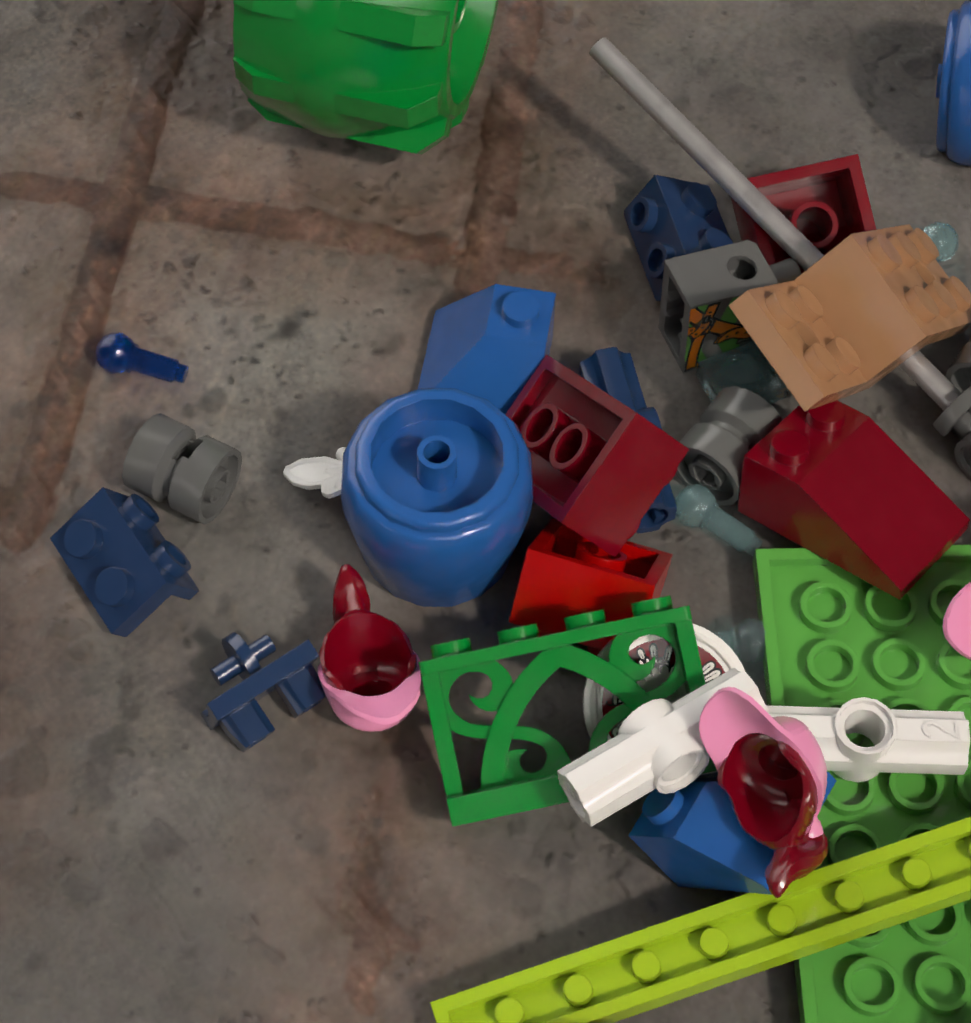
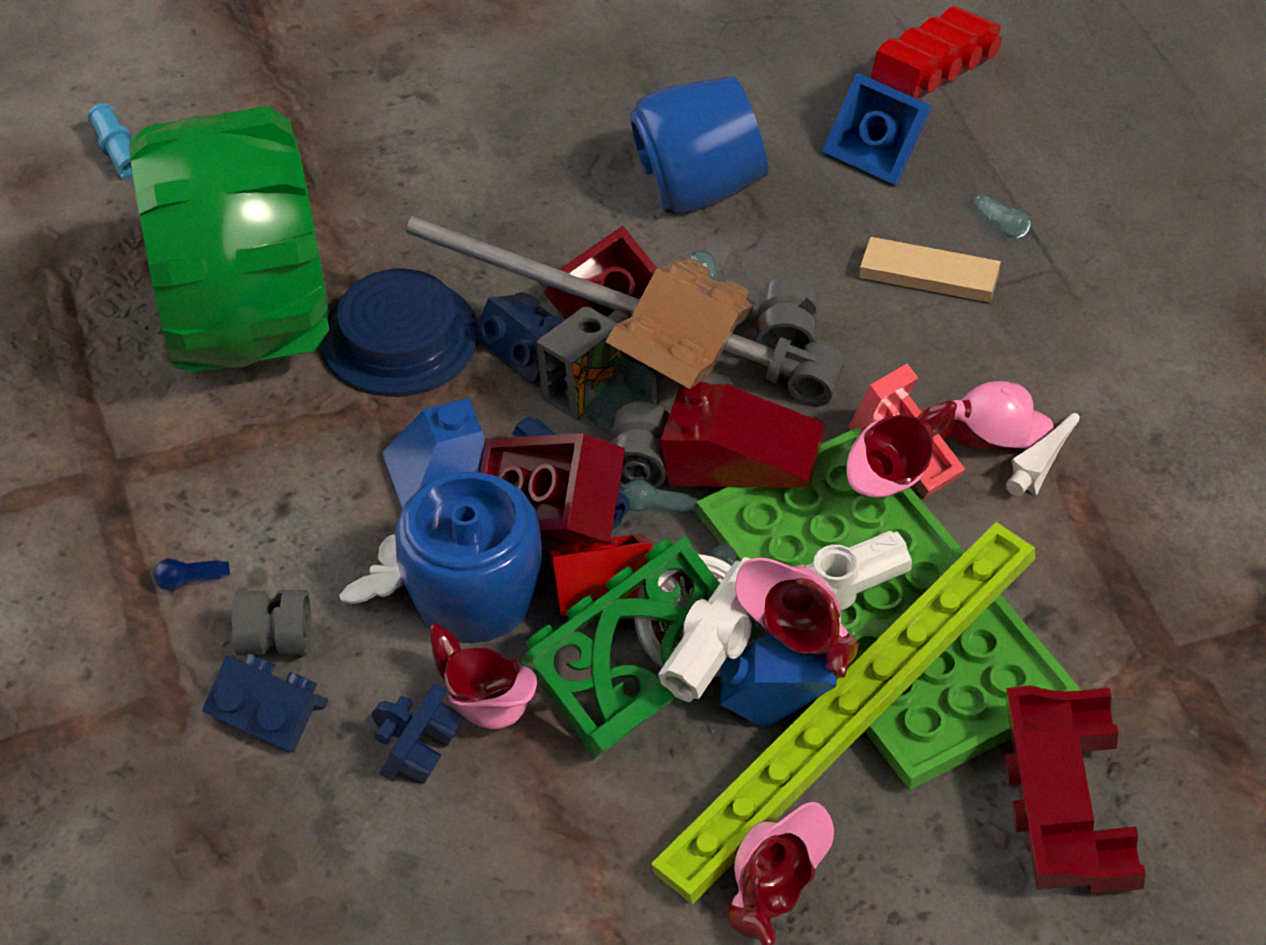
camera: 25 degrees left, 10 degrees down
(539, 173) = (399, 334): none -> dark blue piece

